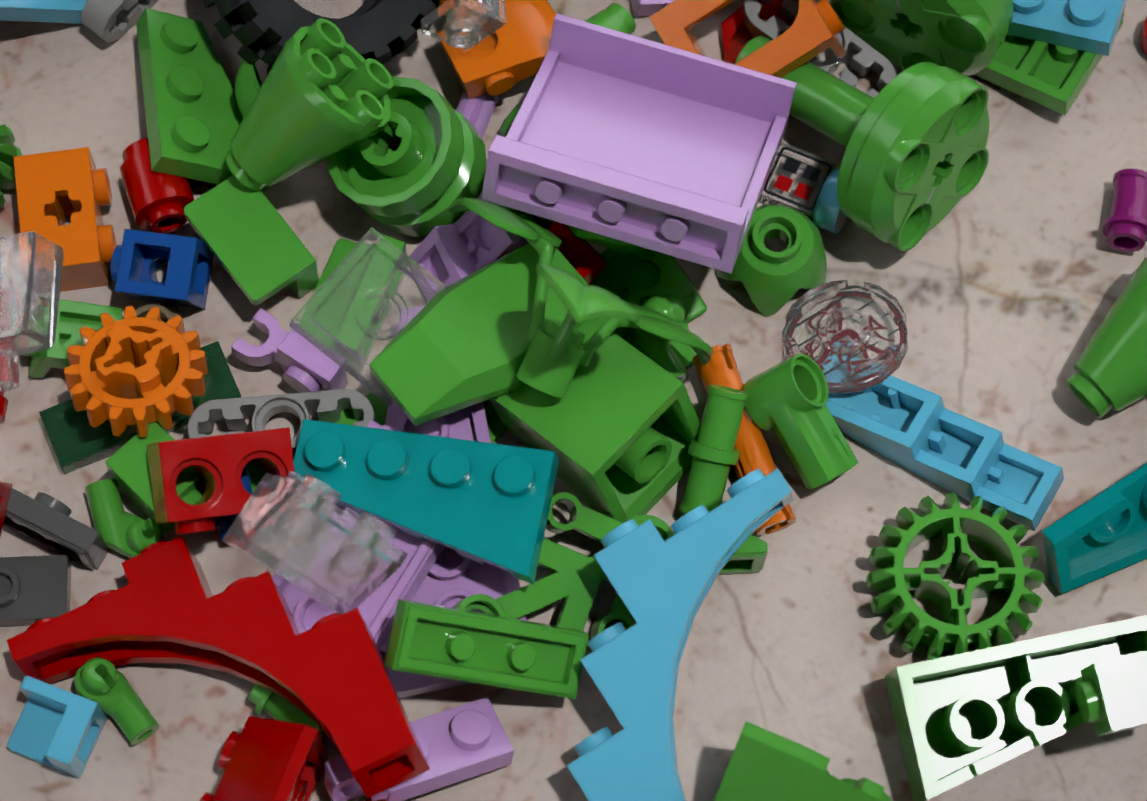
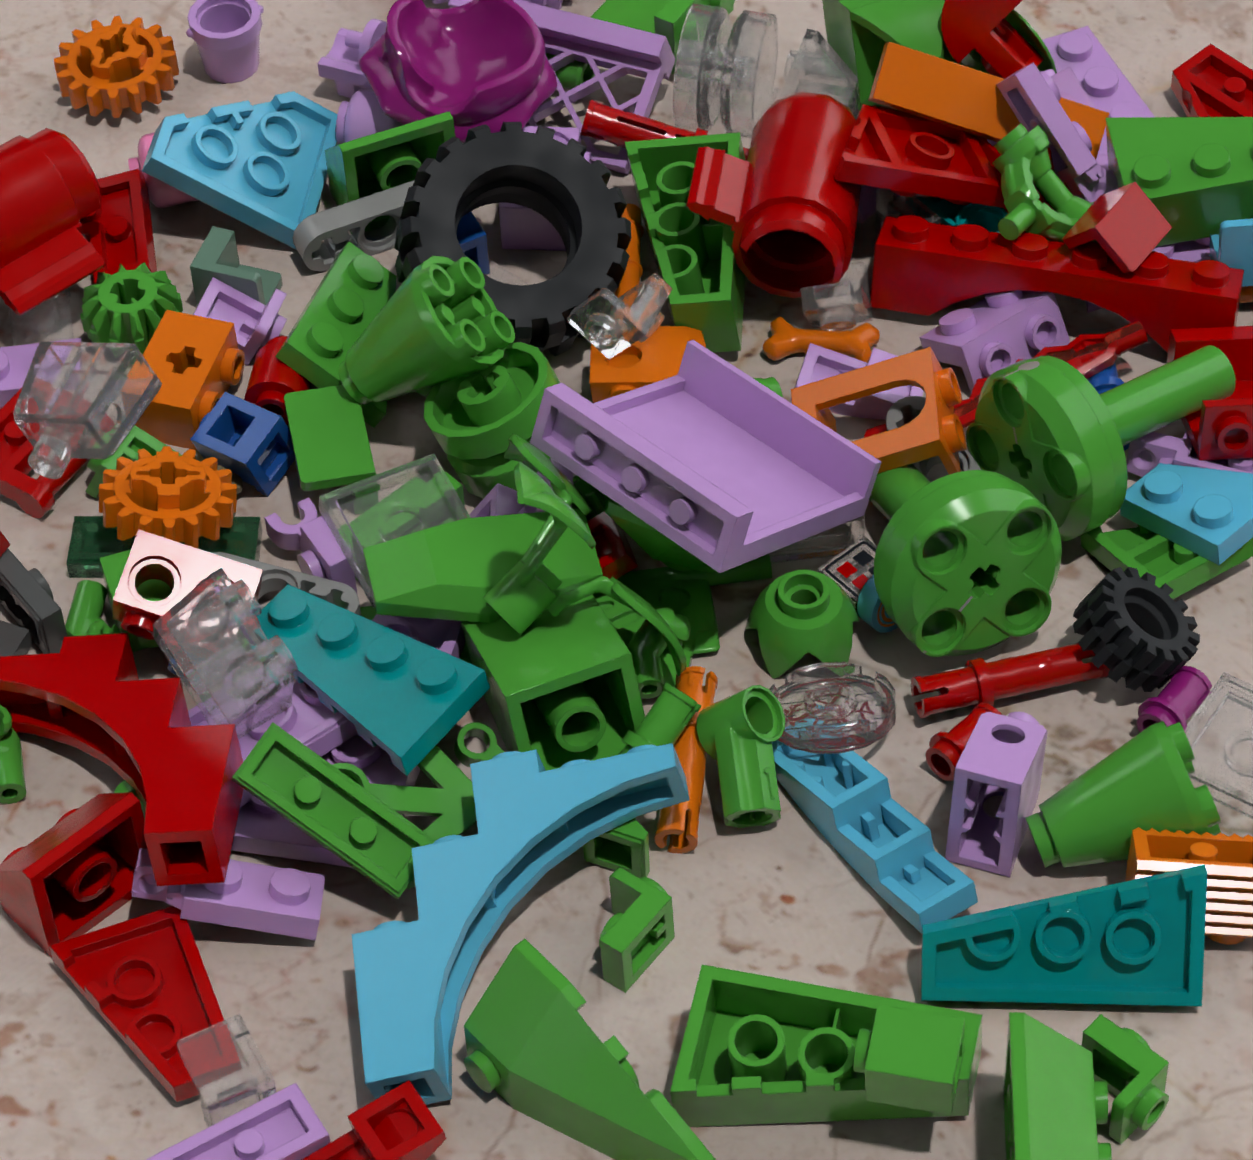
camera: 30 degrees right, 20 degrees down
(46, 89) = (220, 260): none -> sand green panel
(77, 125) = (252, 320): none -> lavender bracket
(792, 645) = (637, 930): none -> bright green bracket
(956, 526) = (804, 920): bright green gear -> none
(961, 252) = (1004, 678): none -> red pin
(970, 334) = (948, 746): none -> red pin
(1035, 363) = (998, 760): none -> lavender torso
(1072, 152) = (1136, 629): none -> black tyre

